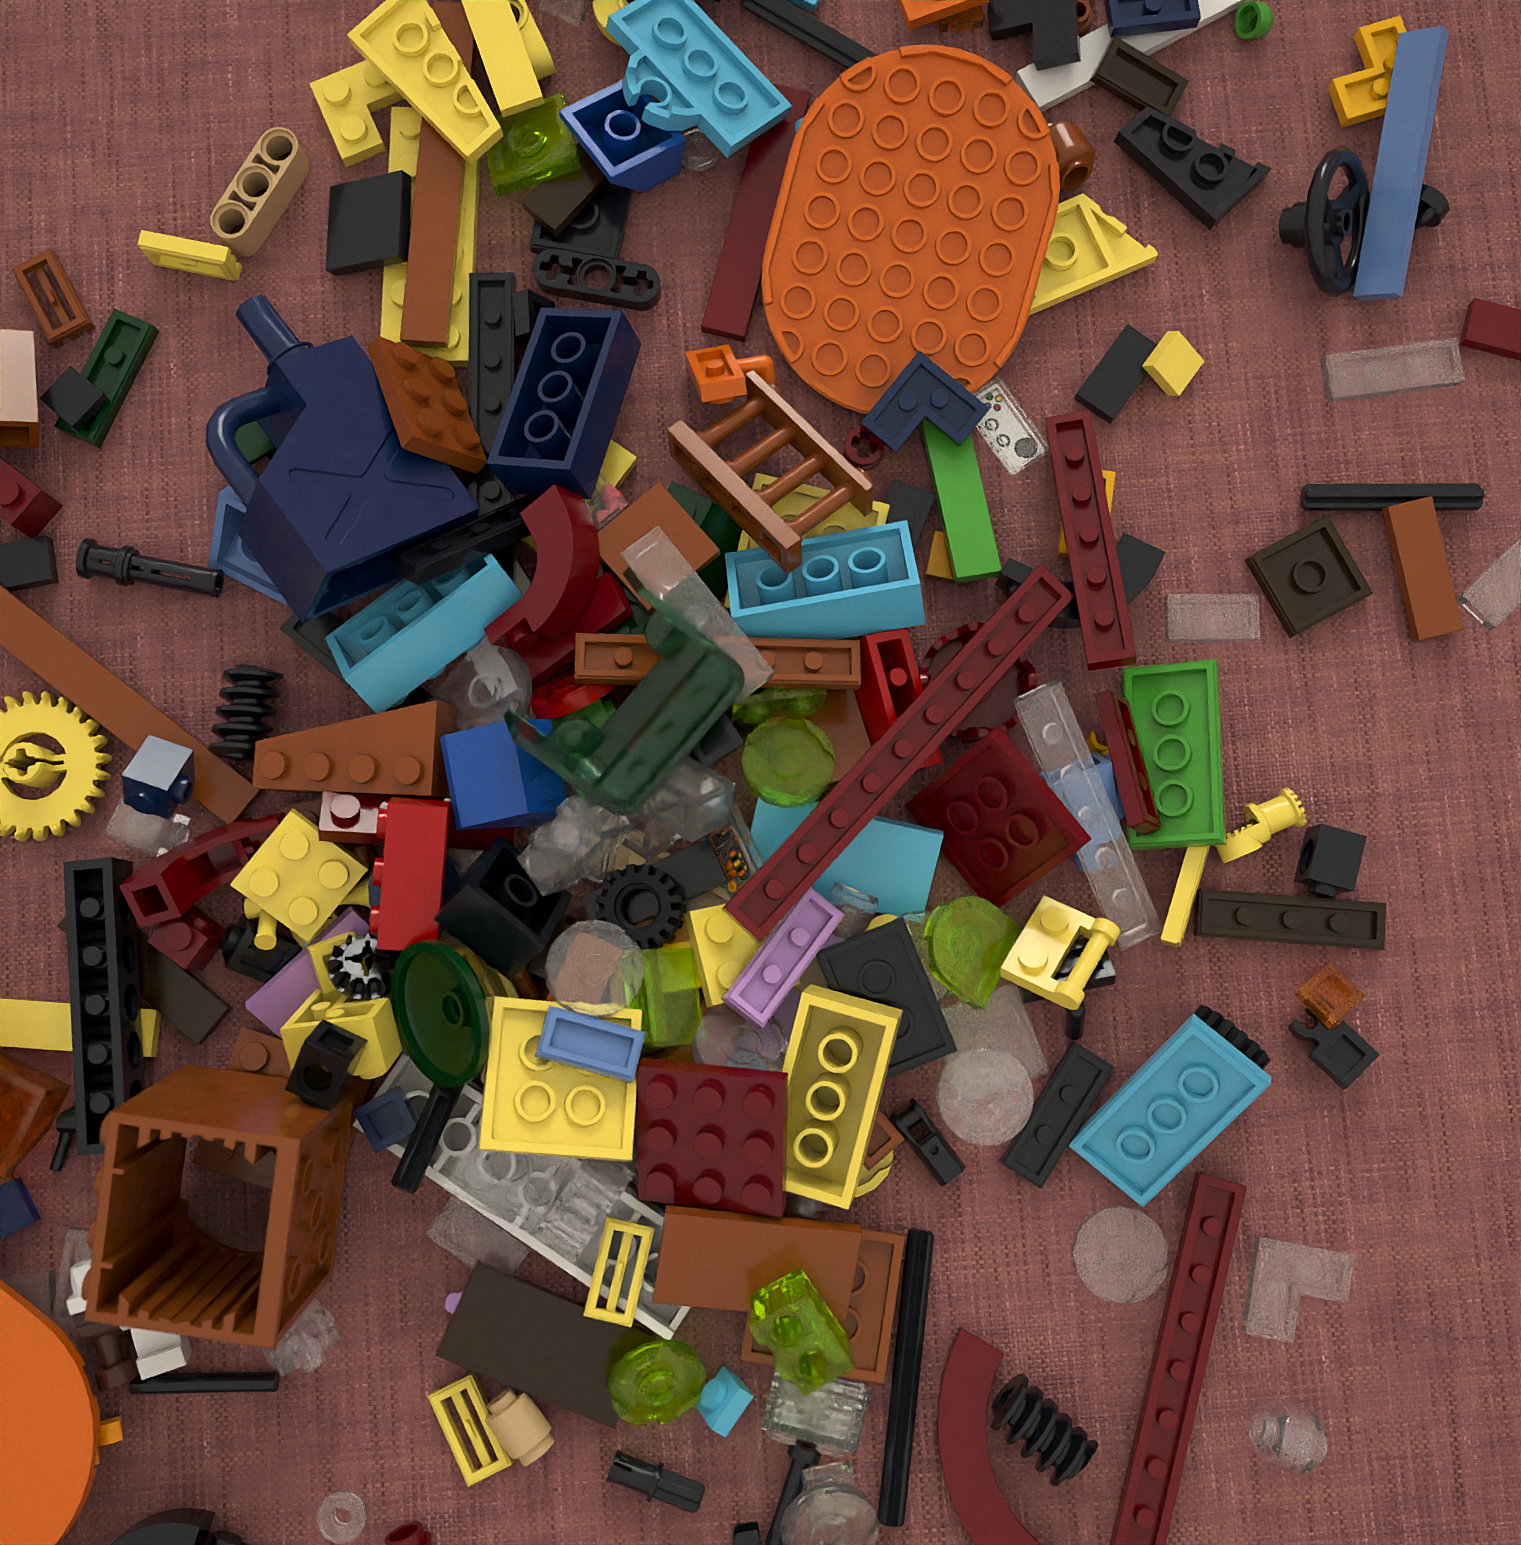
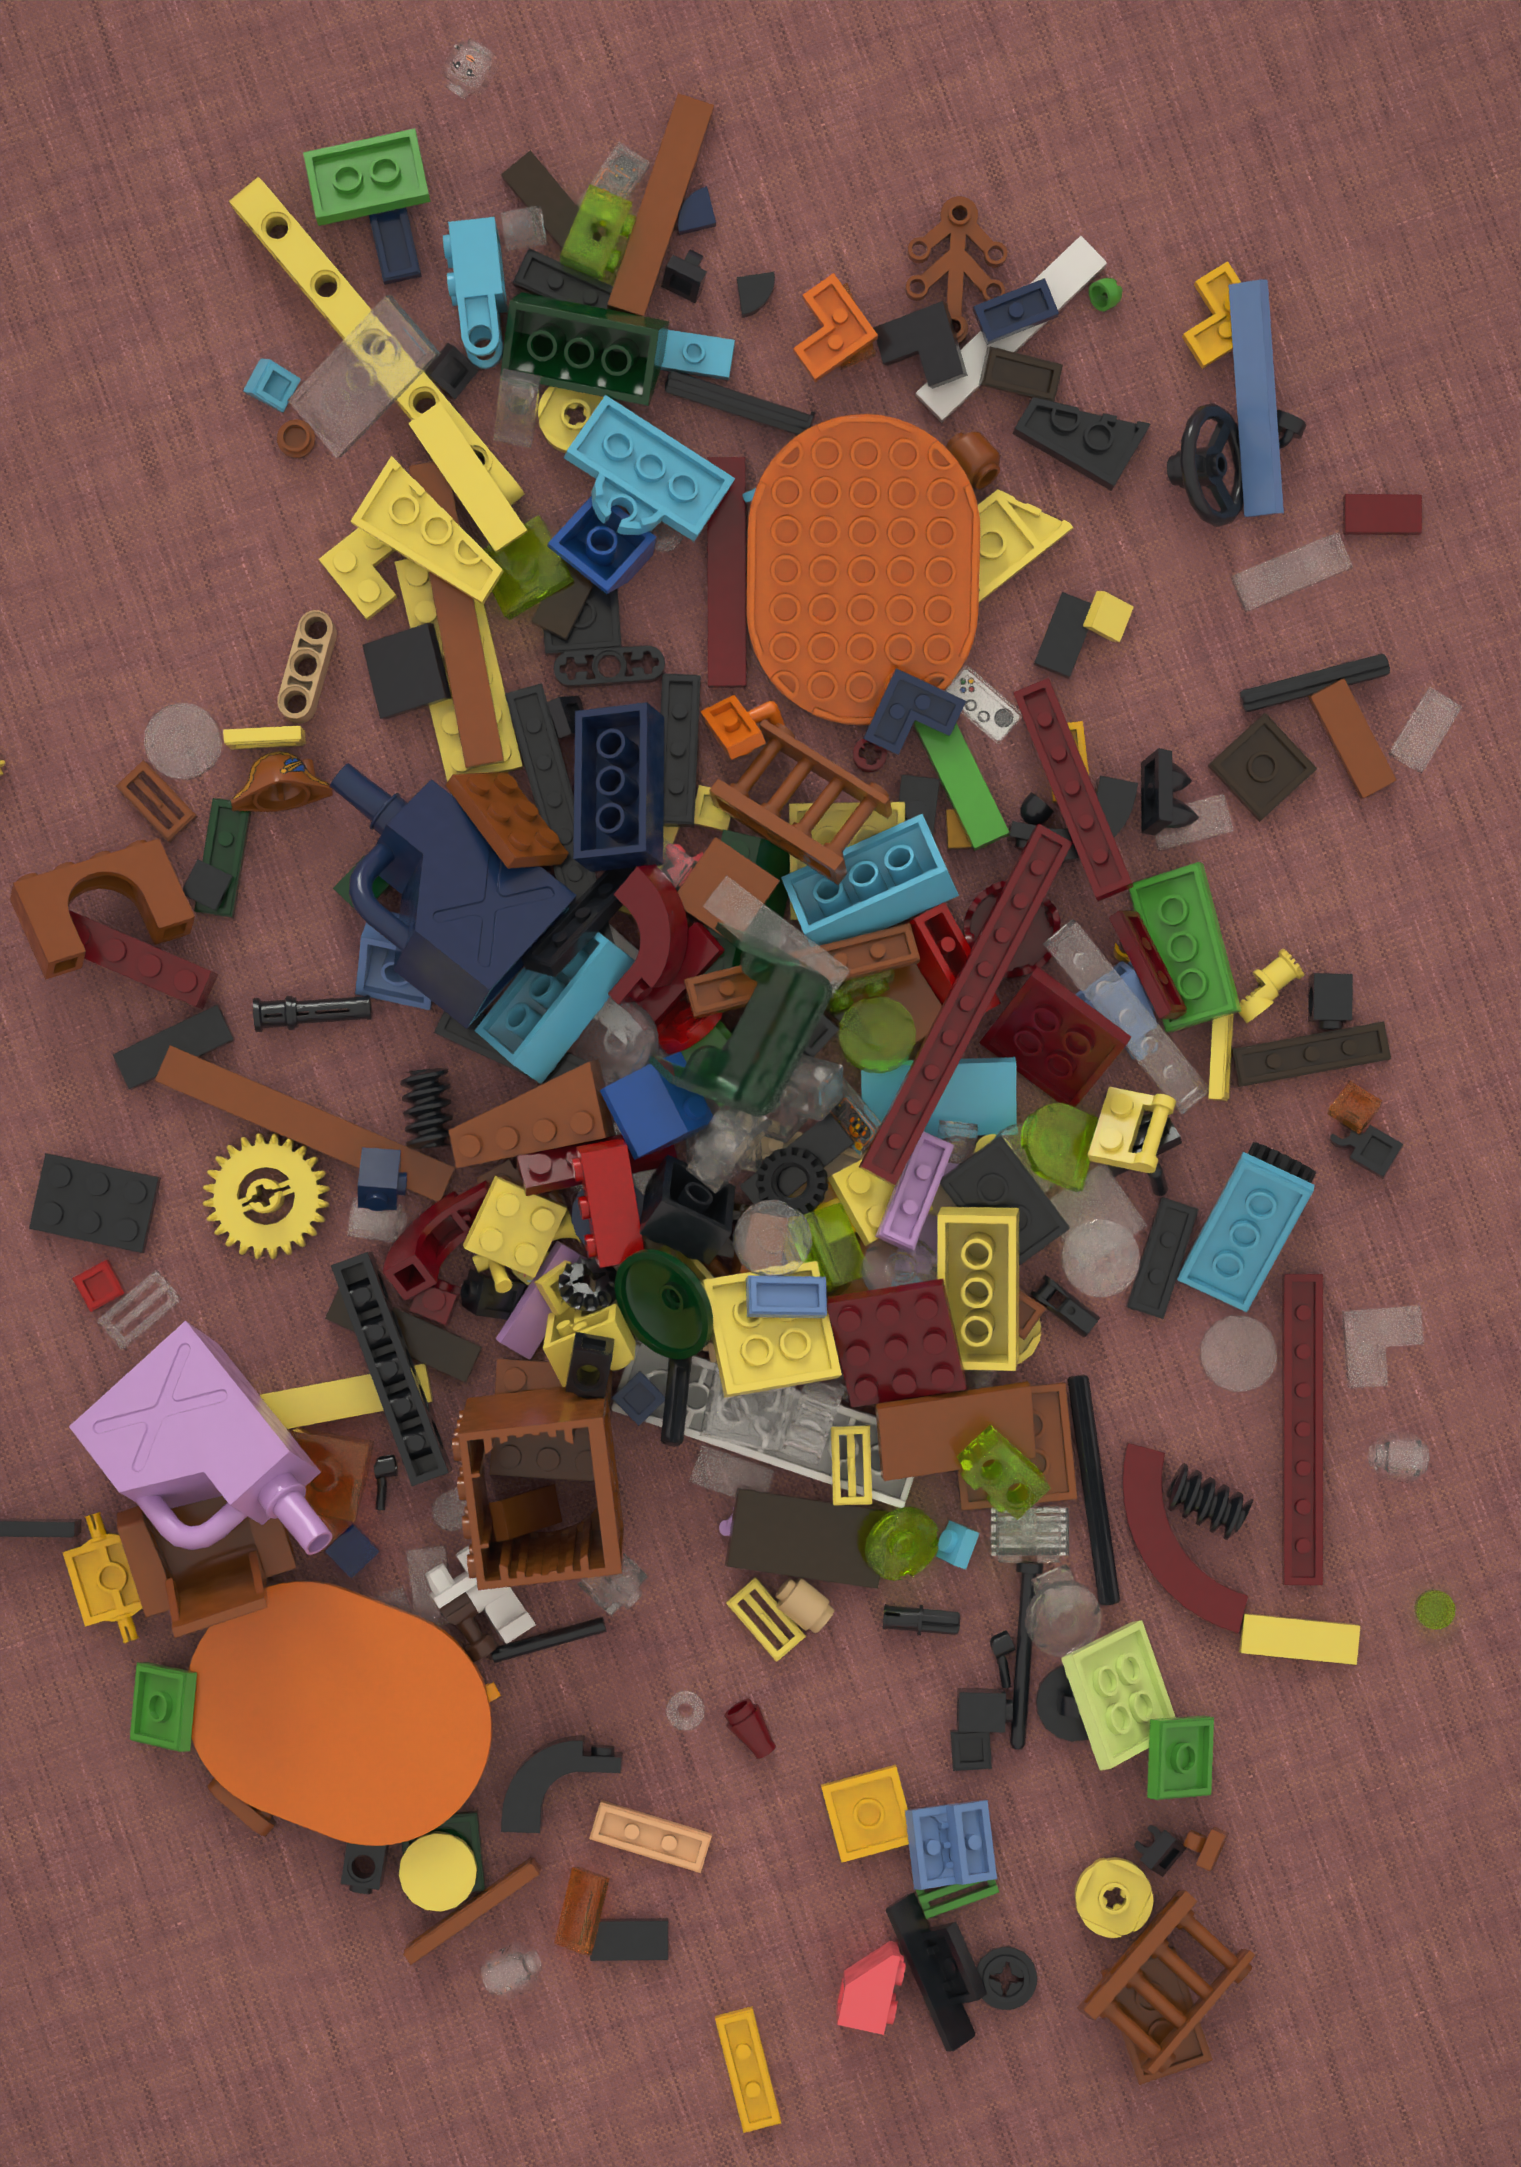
camera: 15 degrees left, 5 degrees up
(100, 240) = (182, 741): none -> clear tile
(188, 311) = (280, 783): none -> dark orange hat
(206, 1224) = (525, 1512): none -> dark orange tile
(650, 386) = (681, 723): none -> black tile
(661, 466) = (707, 814): none -> light yellow tile
(1037, 552) = (1034, 810): none -> black hinge
(1185, 564) = (1158, 782): none -> black tile

